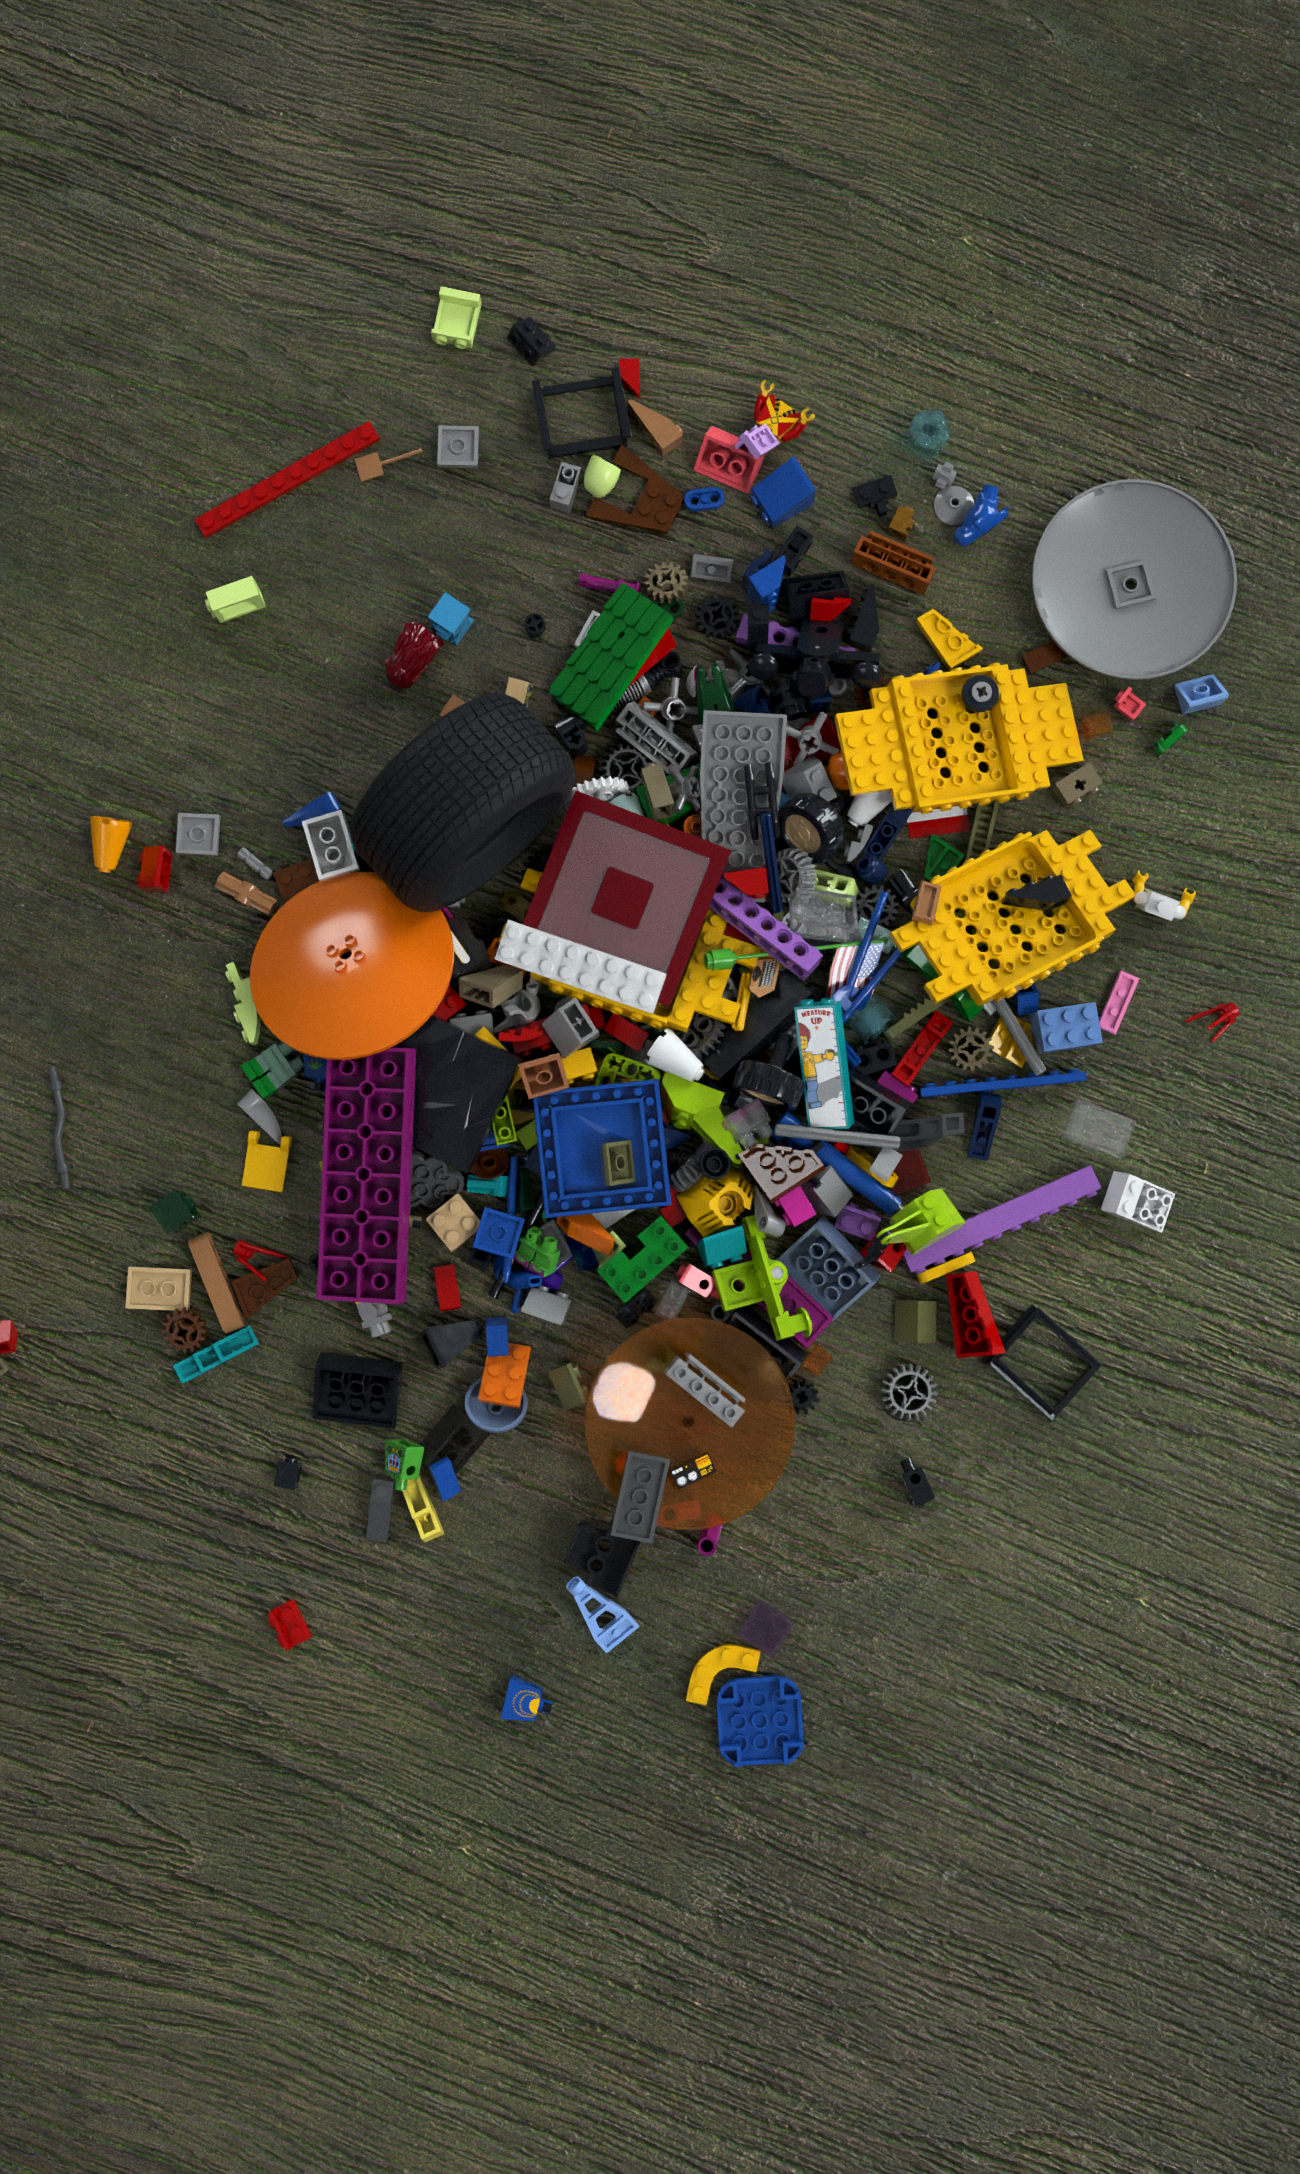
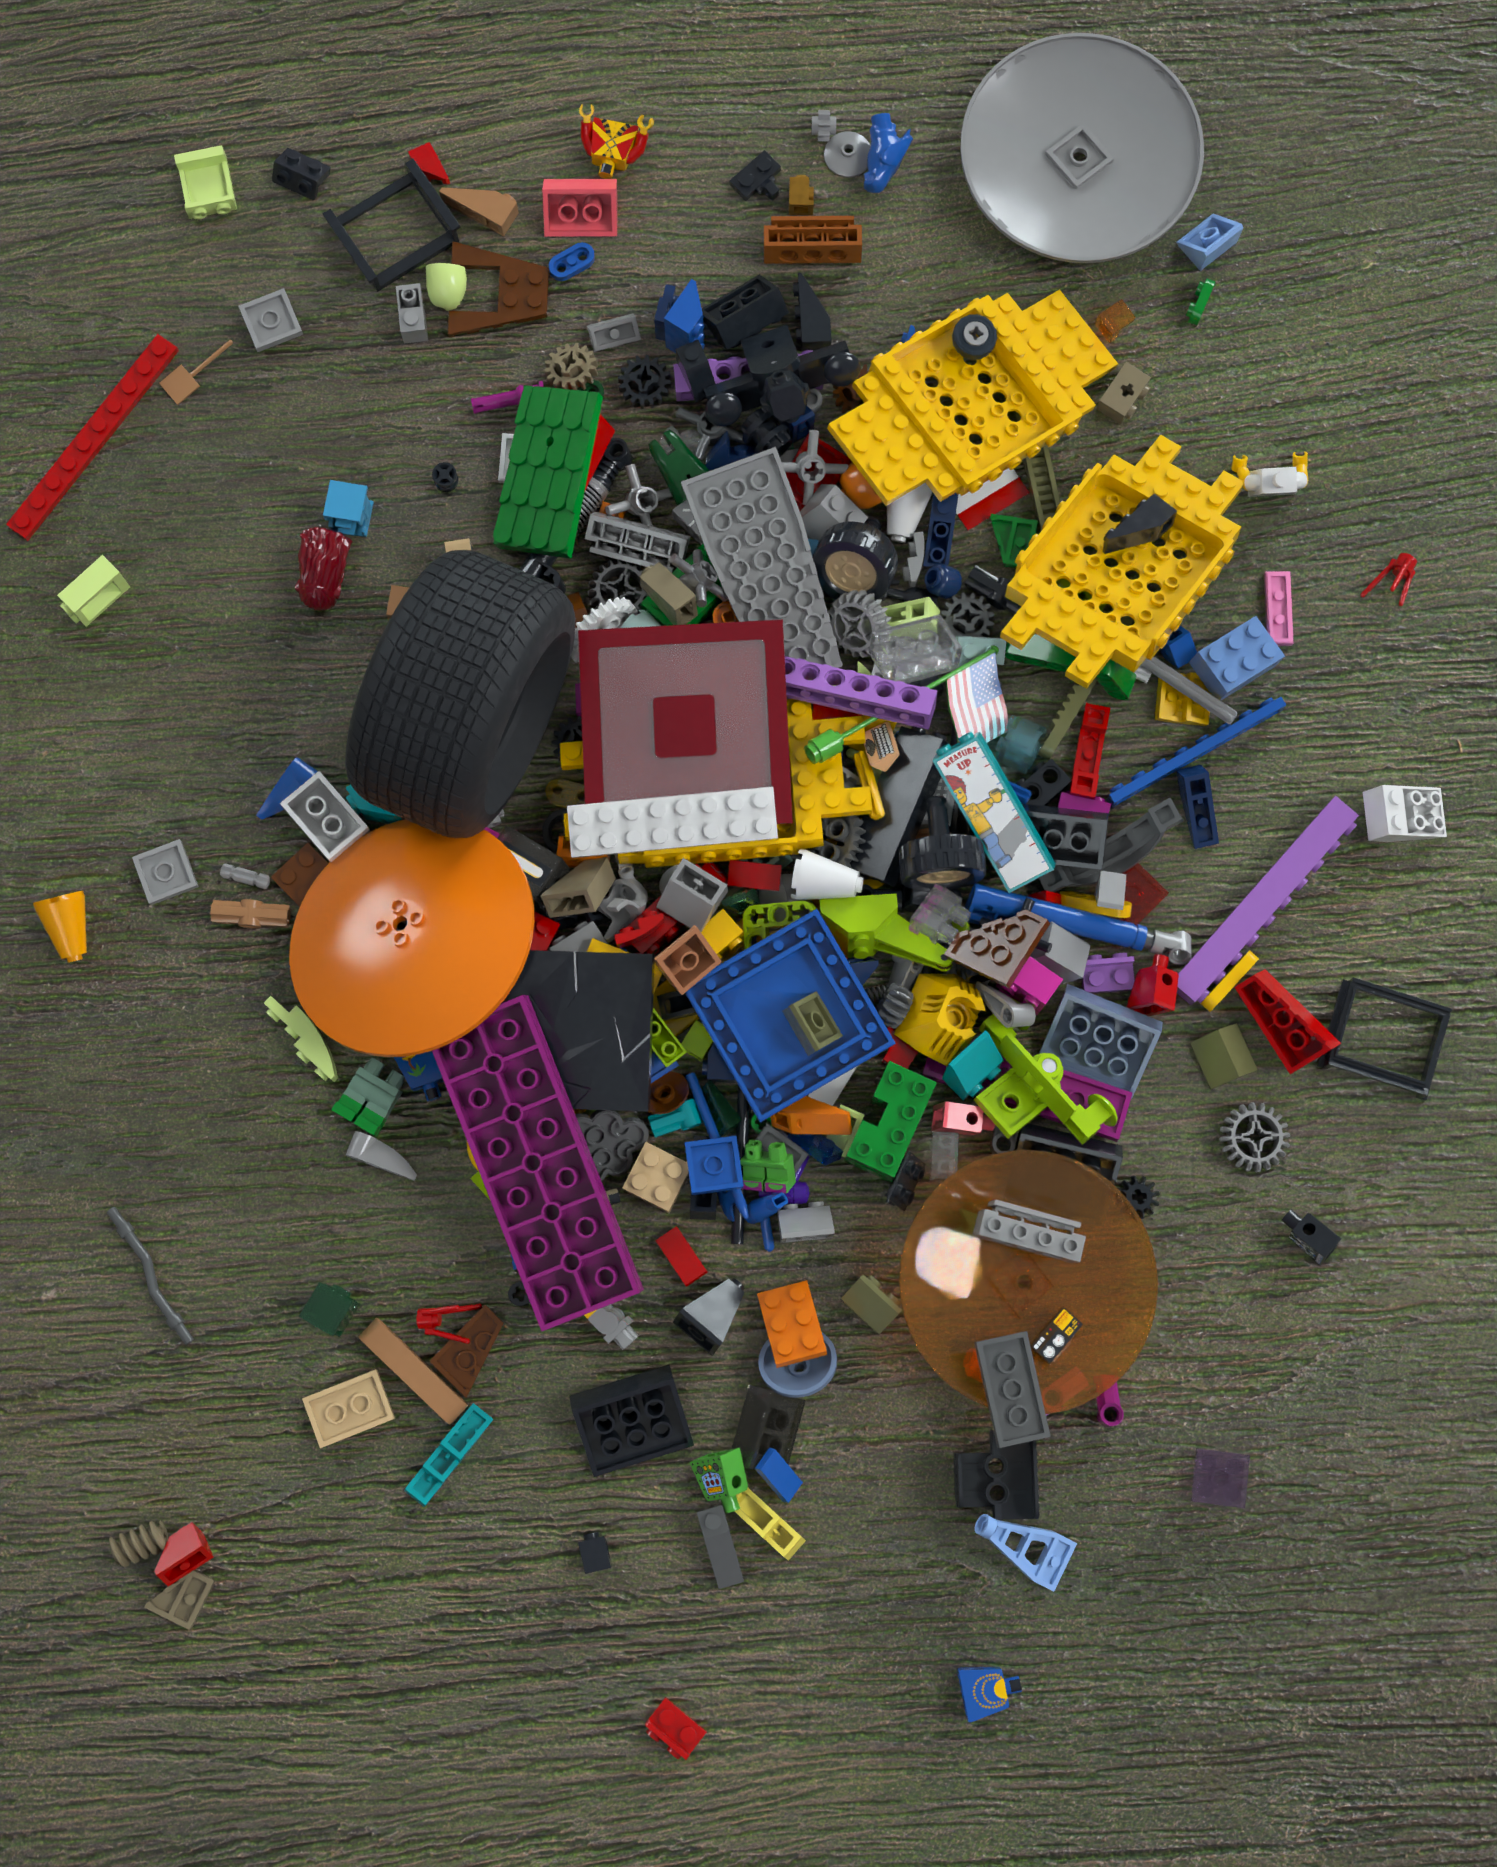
camera: 30 degrees left, 5 degrees down
(155, 869) = (133, 932): red slope -> none
(181, 1338) = (408, 1450): reddish brown gear -> none
(266, 1164) = (409, 1210): yellow flag -> none
(497, 1336) = (765, 1285): blue slope -> none
(691, 682) = (648, 464): white sticker -> none
(714, 1163) = (922, 976): black helmet -> none
(714, 1661) = (1178, 1547): yellow plate -> none
(750, 881) = (818, 646): red slope -> none
(752, 791) = (775, 550): black piece -> none
(758, 441) = (604, 171): lavender bracket -> none
(760, 1720) = (1262, 1588): blue tile -> none
(771, 862) = (831, 617): dark blue axle -> none
(783, 493) = (657, 217): blue slope -> none
(795, 549) = (697, 267): black brick -> none
(817, 1360) = (1136, 1148): clear orange panel -> none
(828, 609) = (765, 319): red slope -> none
(837, 1136) = (1044, 884): light grey axle -> none
(841, 994) = (975, 724): blue piece -> none
(853, 992) = (998, 719): blue piece -> none
(917, 1225) = (1179, 945): lime slope -> none
(919, 433) = (785, 88): clear light blue brick -> none
(926, 902) = (1024, 584): medium nougat tile -> none
(946, 640) = (911, 301): yellow wing -> none
(970, 1038) = (1155, 721): dark tan gear -> none
(1043, 657) = (1022, 272): reddish brown tile -> none
(1097, 1129) = (1323, 754): clear brick -> none
(1128, 704) = (1138, 283): coral bracket -> none

